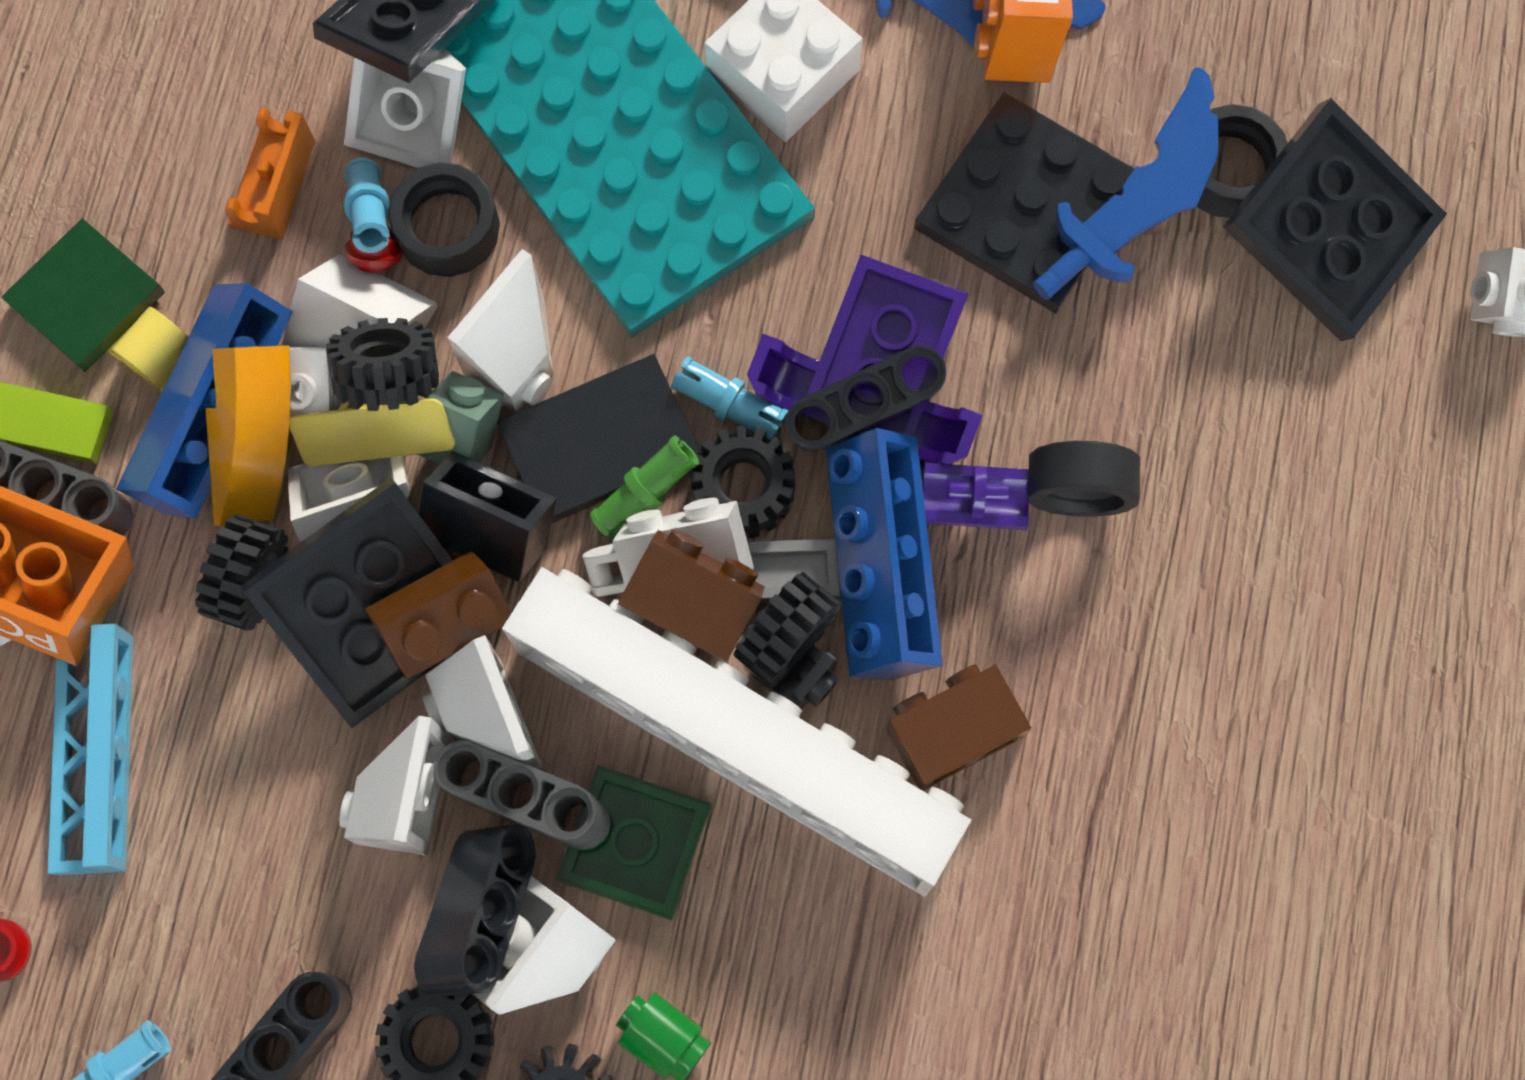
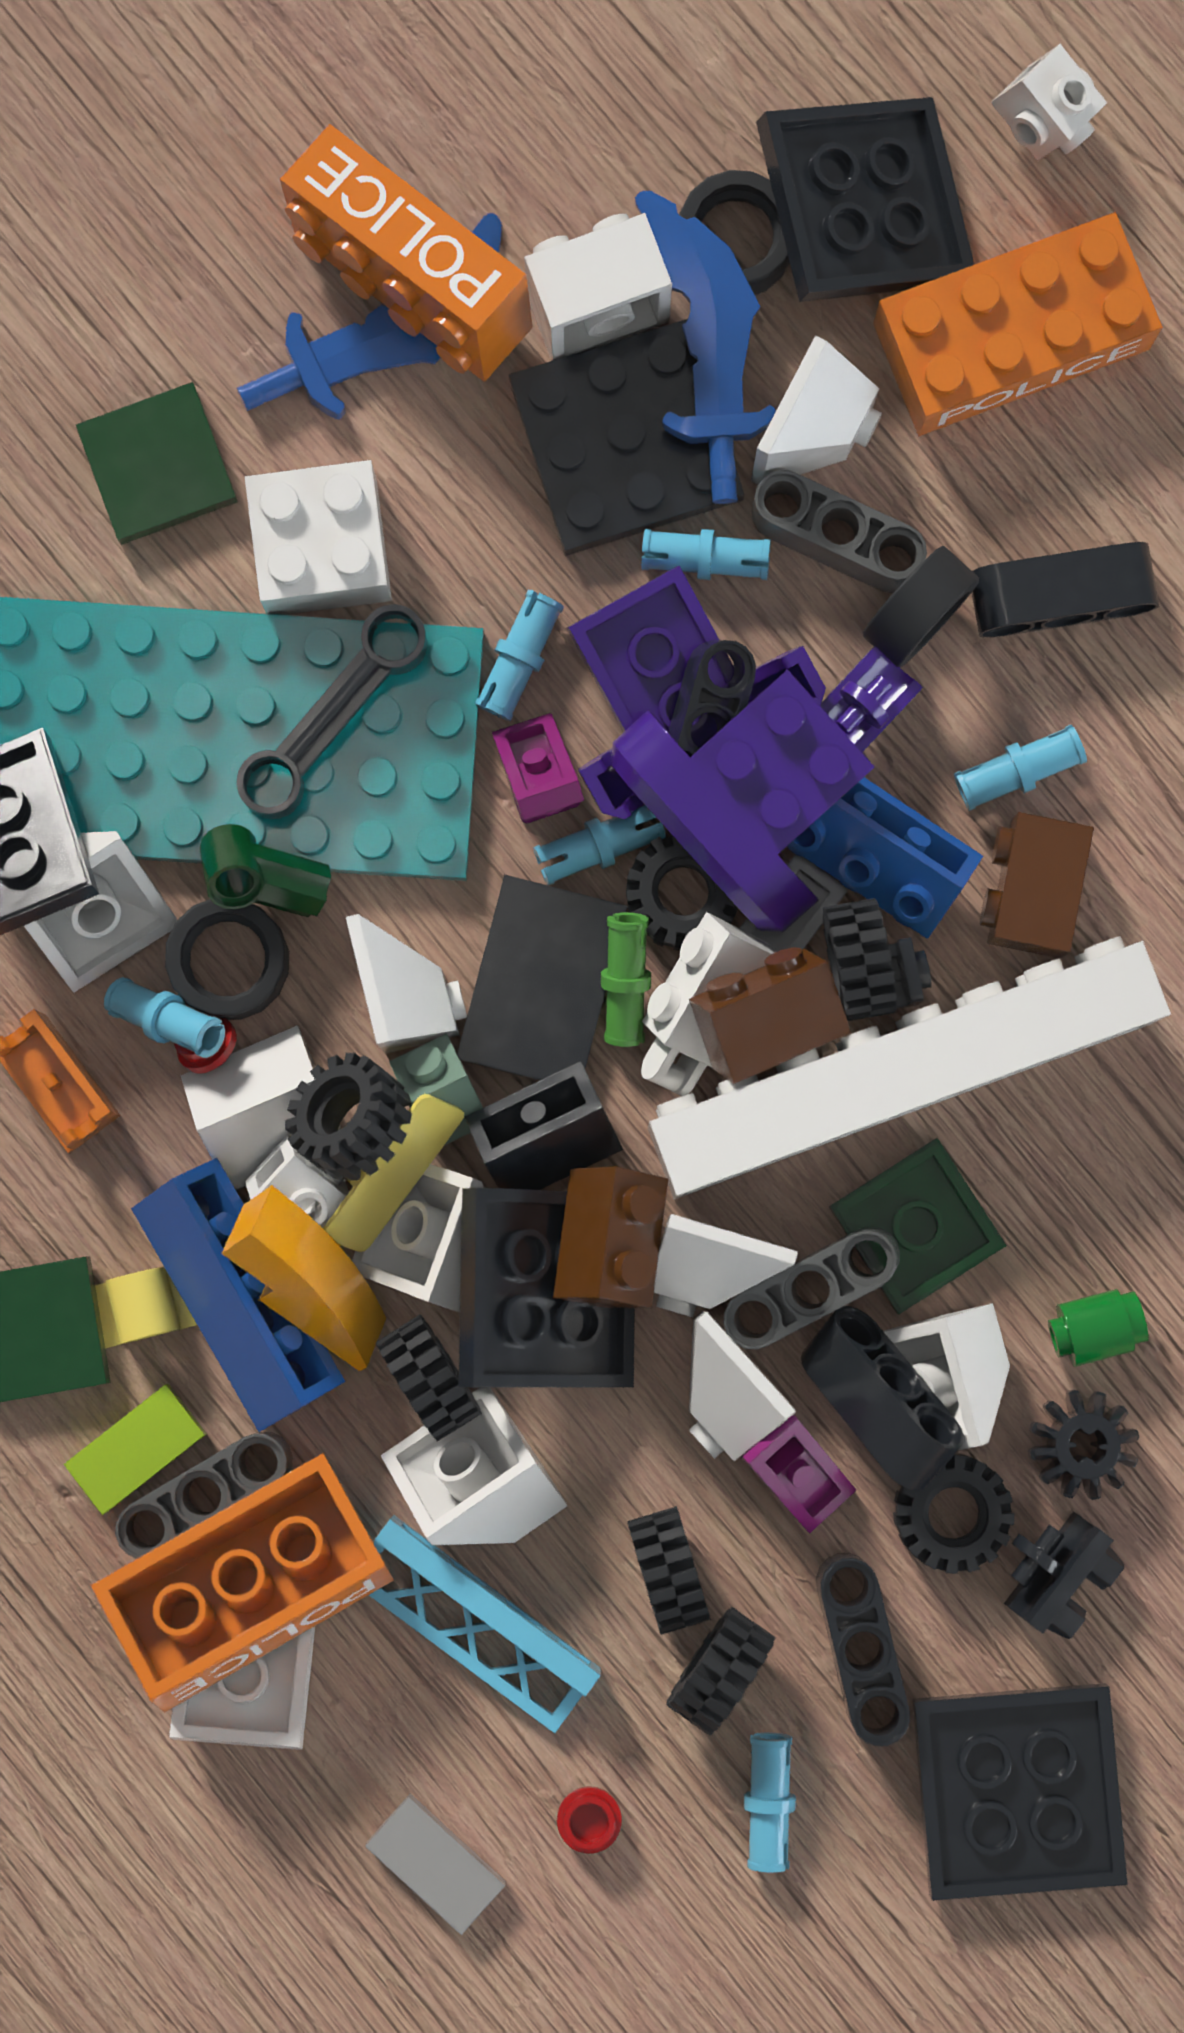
camera: 50 degrees left, 10 degrees up
(176, 953) = (720, 1671): none -> black tyre
(194, 668) = (476, 1481): none -> white slope
(225, 855) = (668, 1570): none -> black tyre
(375, 893) = (799, 1473): none -> magenta slope
(509, 173) = (248, 873): none -> dark green piece
(669, 149) = (333, 711): none -> black piece
(741, 316) = (538, 768): none -> magenta slope
(816, 245) = (519, 655): none -> medium azure pin
(842, 458) = (746, 793): none -> dark purple piece
(995, 313) = (706, 554): none -> medium azure pin
(1032, 647) = (1020, 767): none -> medium azure pin
(1090, 361) = (820, 505): none -> dark grey beam
(1112, 89) = (598, 285): none -> white brick
(1151, 302) = (819, 415): none -> white slope
(1187, 575) = (1064, 589): none -> black beam
(1345, 392) = (1017, 324): none -> orange brick

